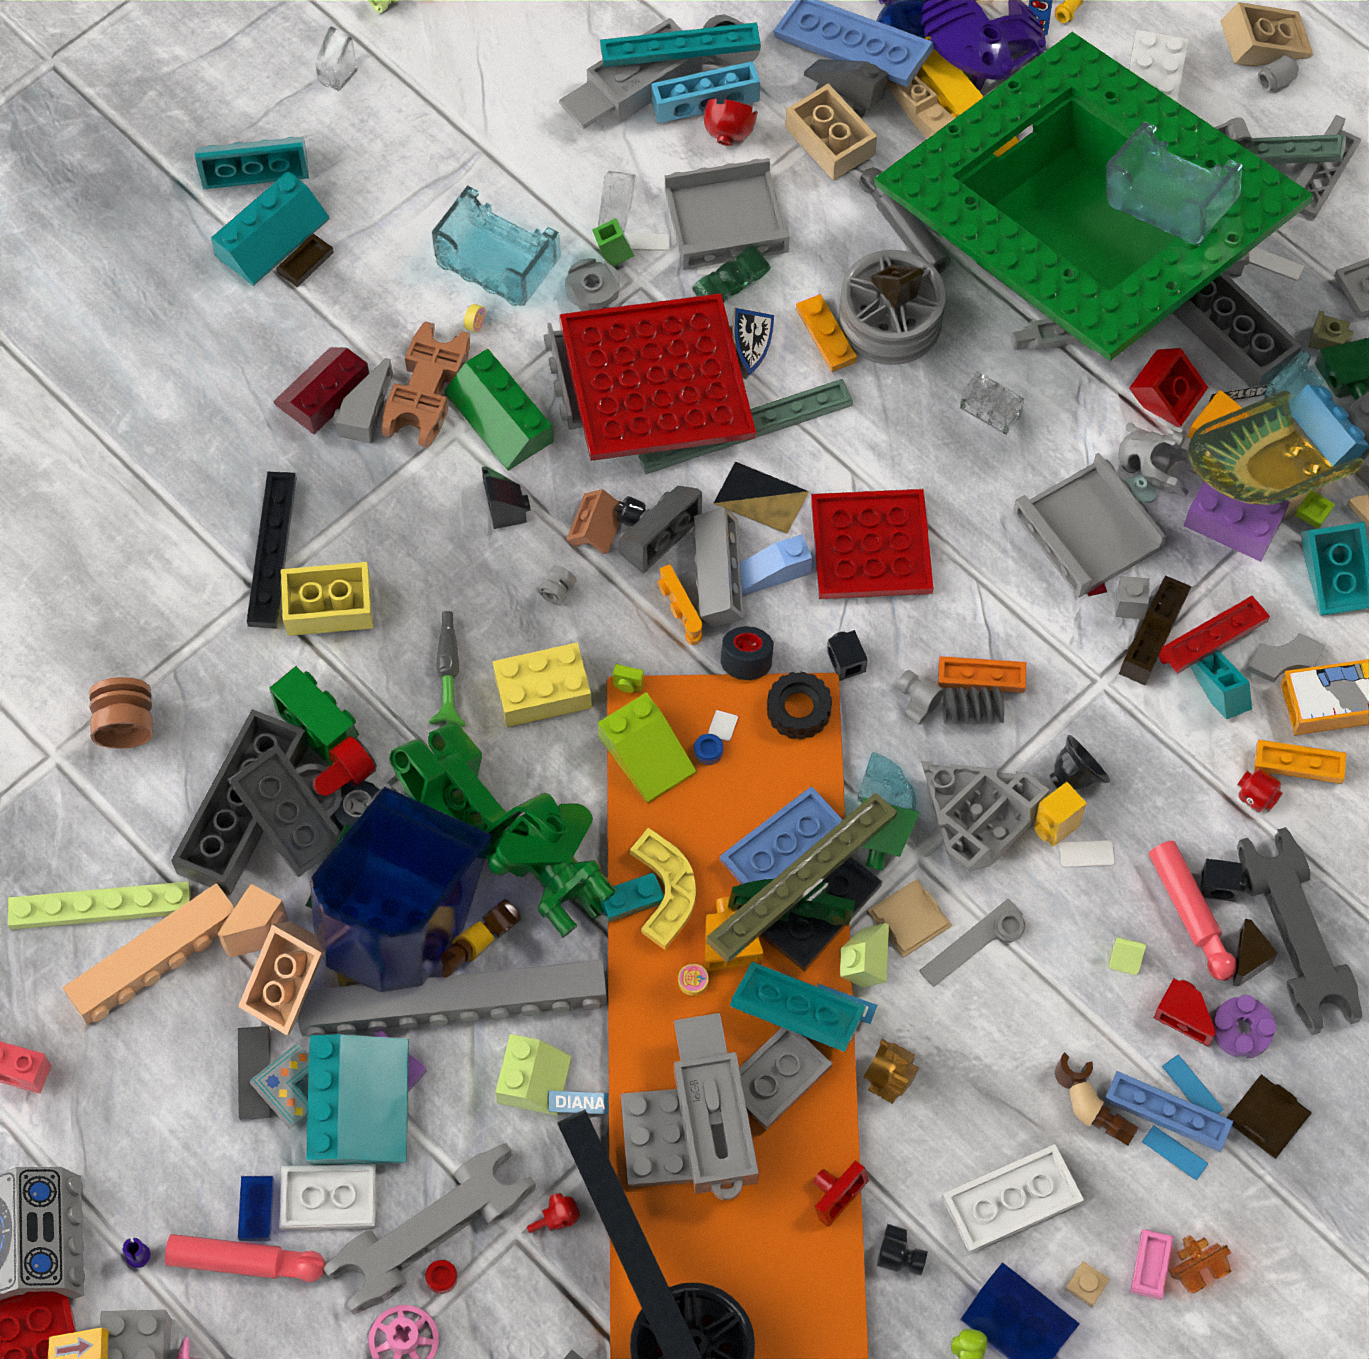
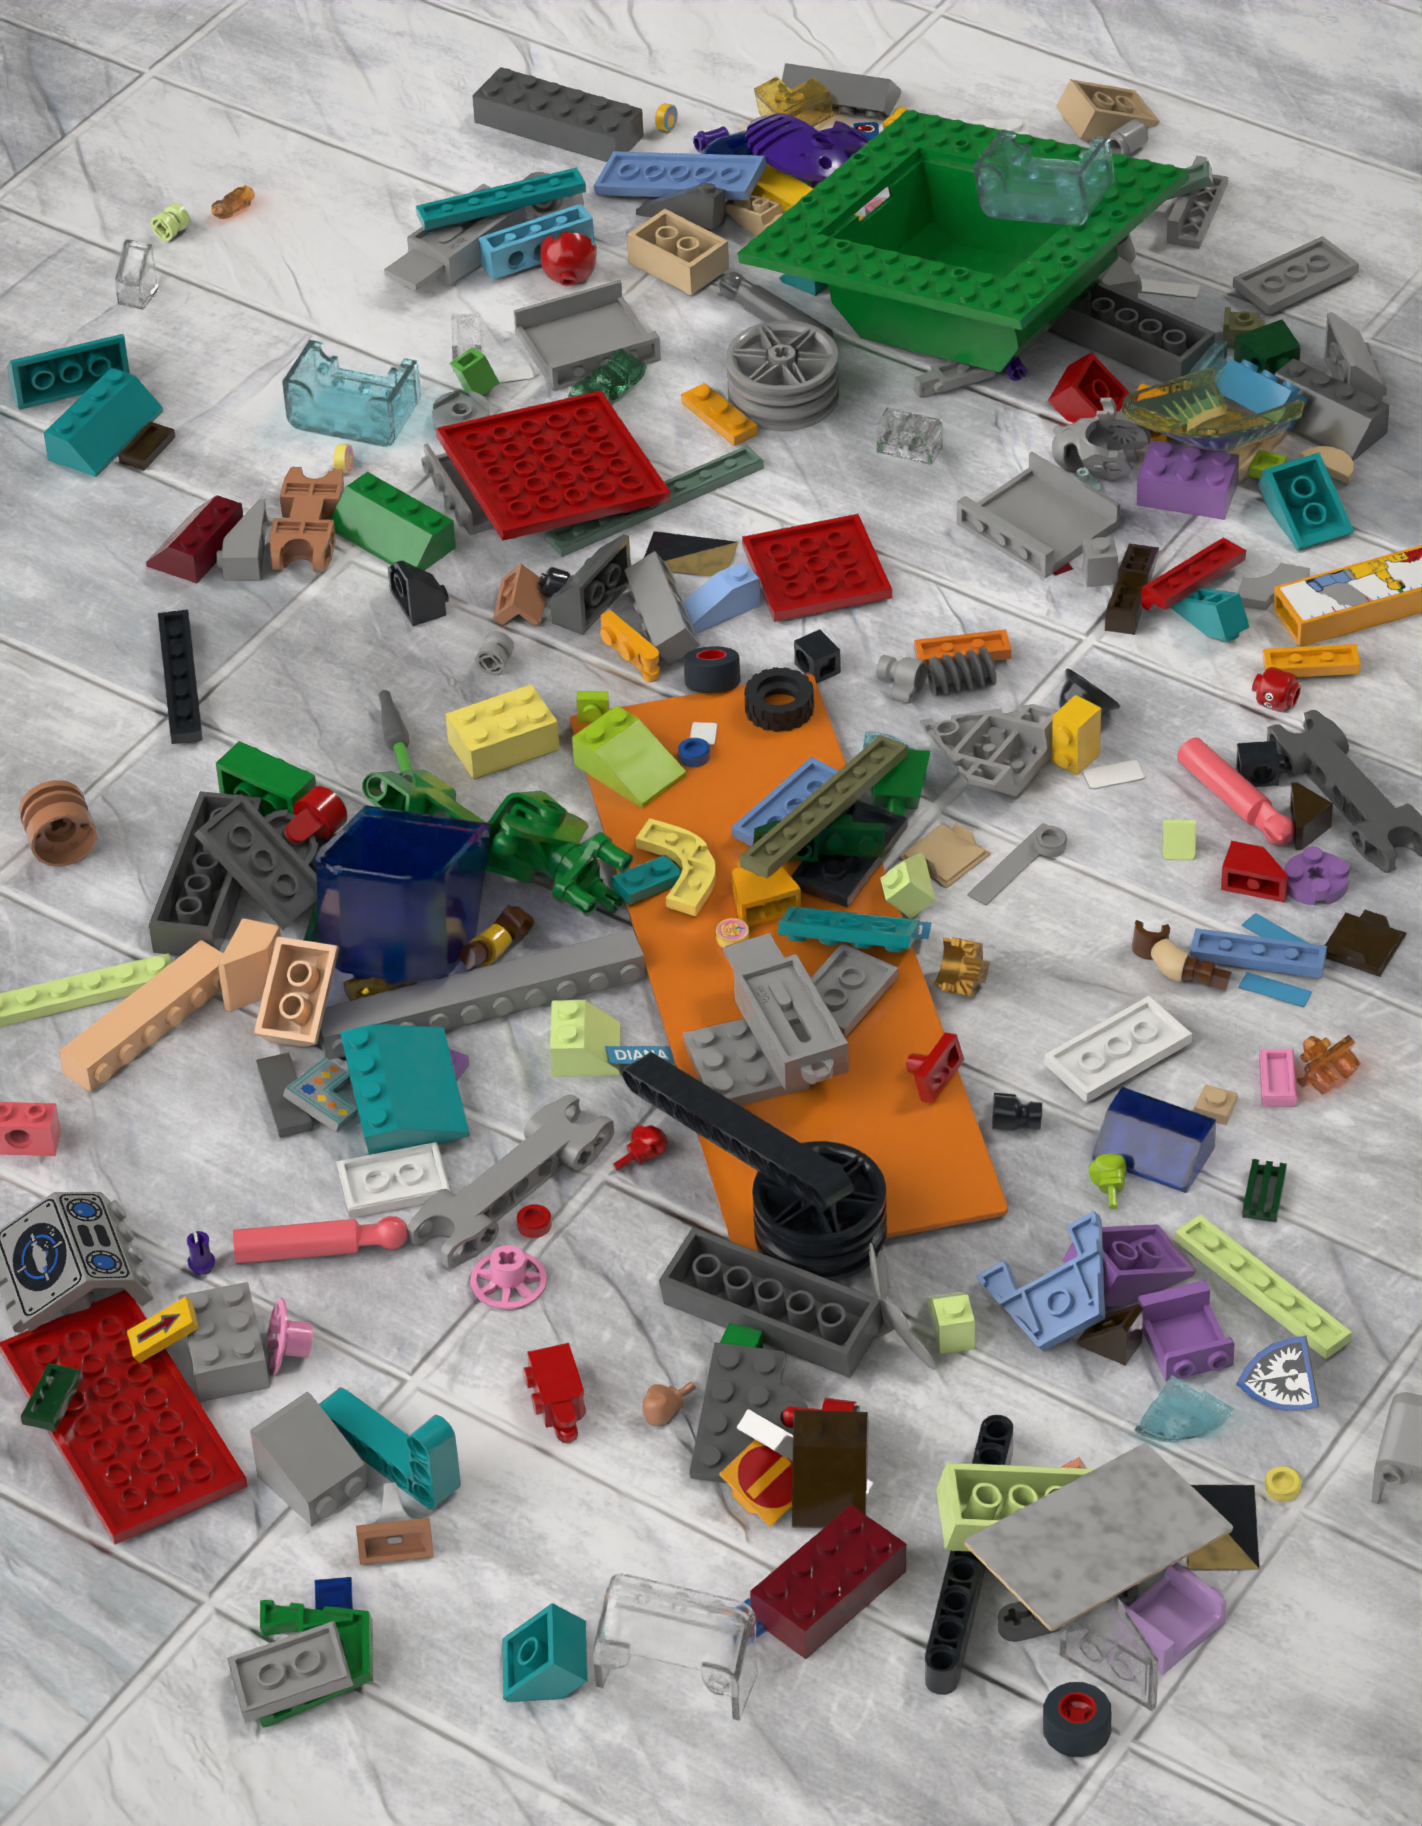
camera: 10 degrees left, 20 degrees down
(255, 1208) = (318, 1195): clear blue plate -> none
(326, 598) = (252, 699): light yellow brick -> none
(751, 337) = (643, 421): shield -> none
(898, 283) = (788, 341): dark brown slope -> none

